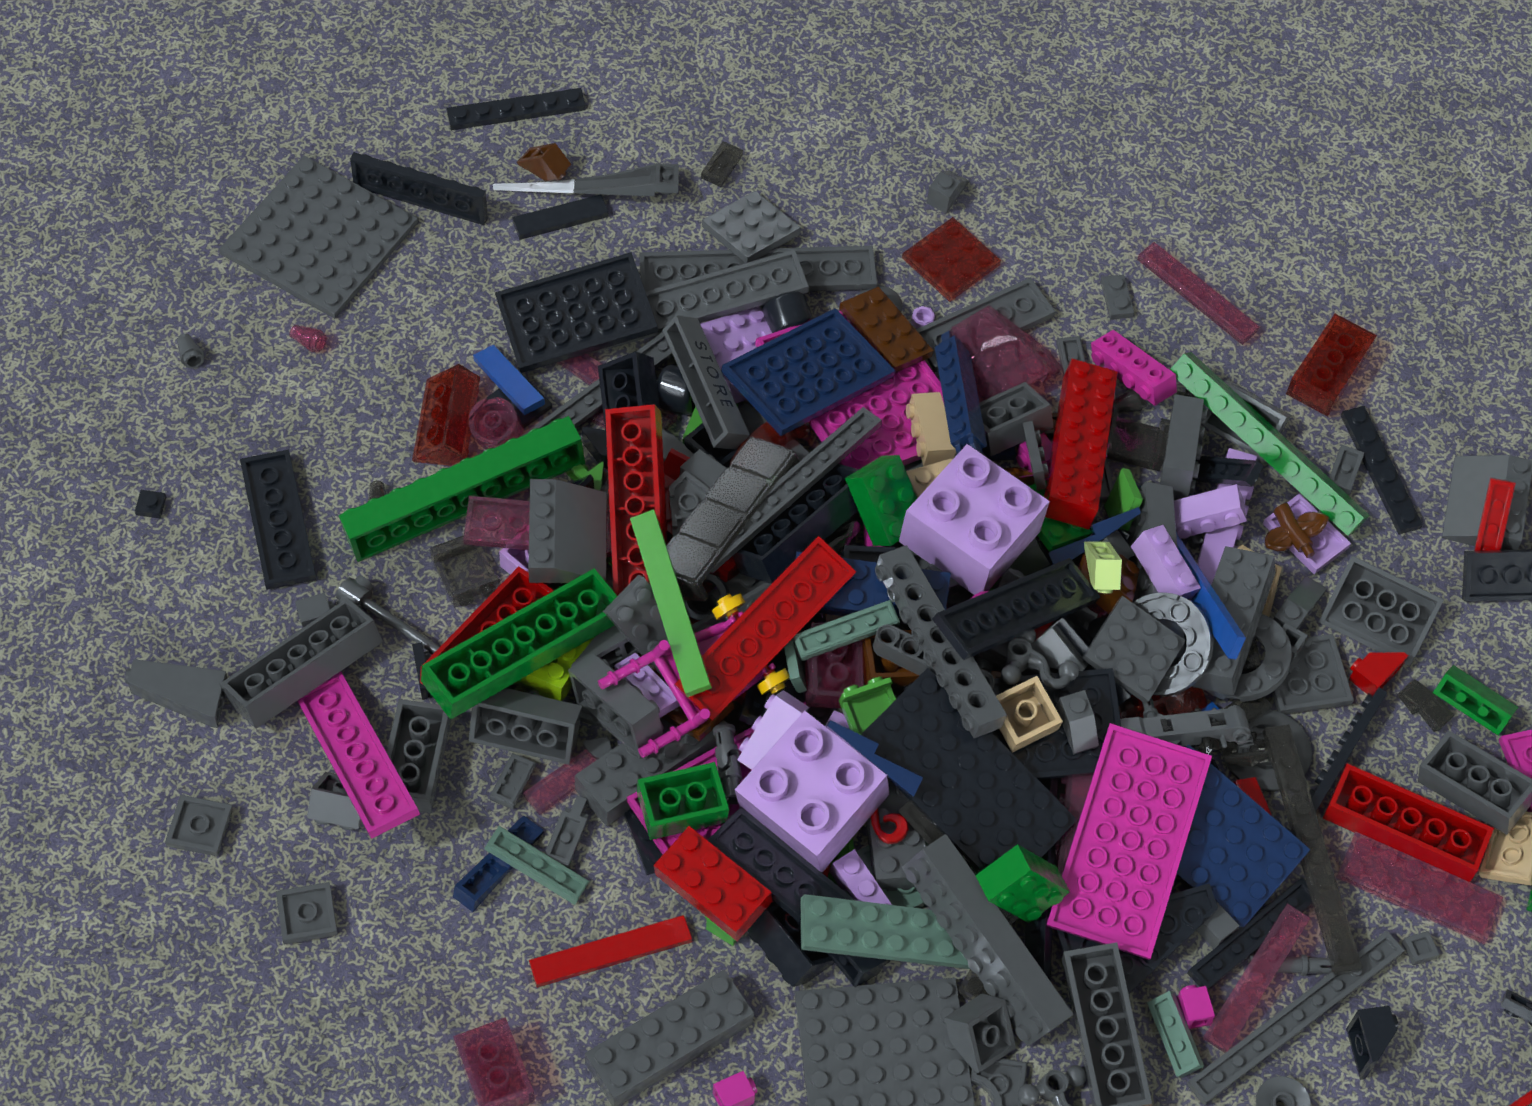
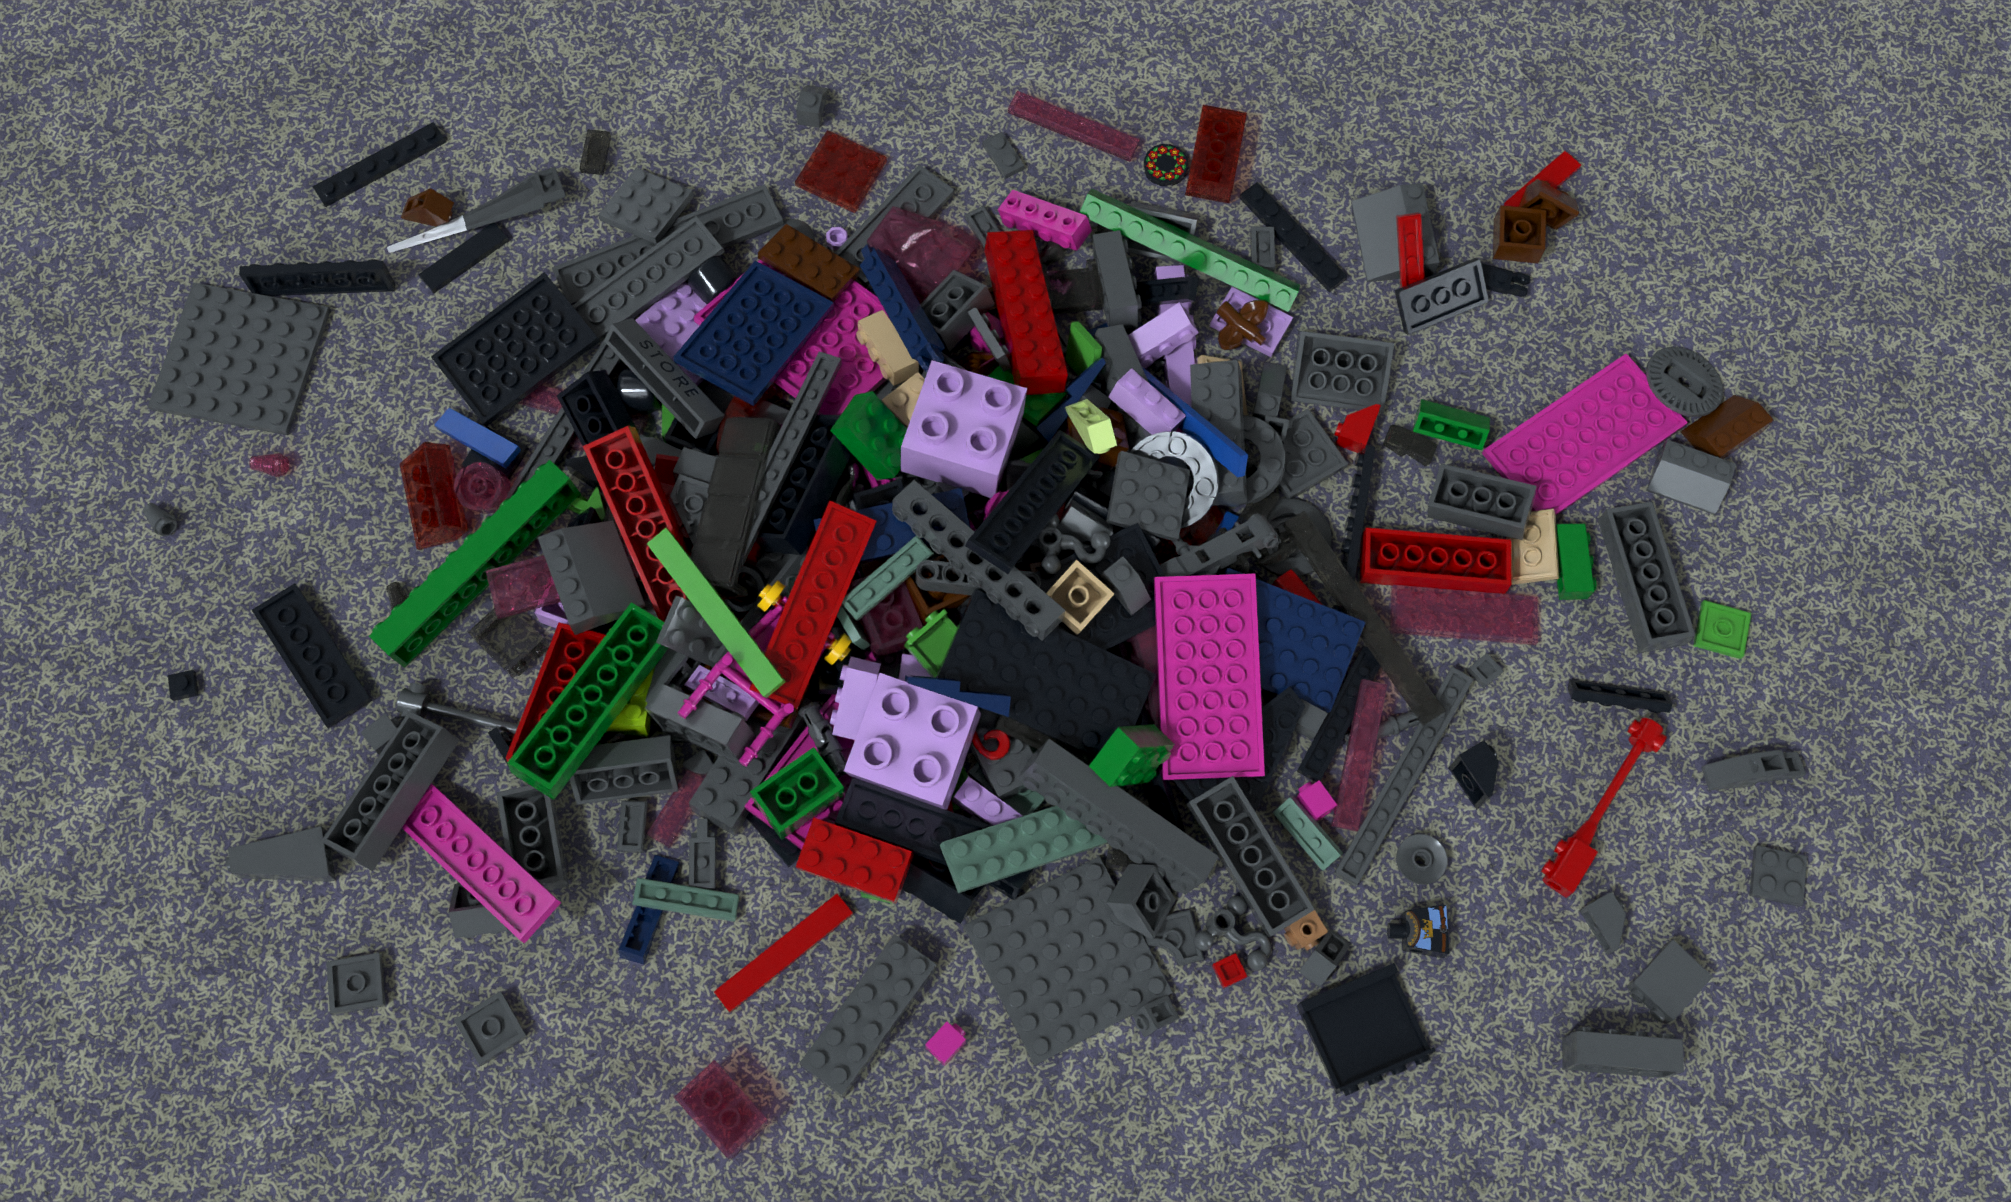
camera: 20 degrees left, 10 degrees up
(1276, 359) = (1165, 165): none -> tile

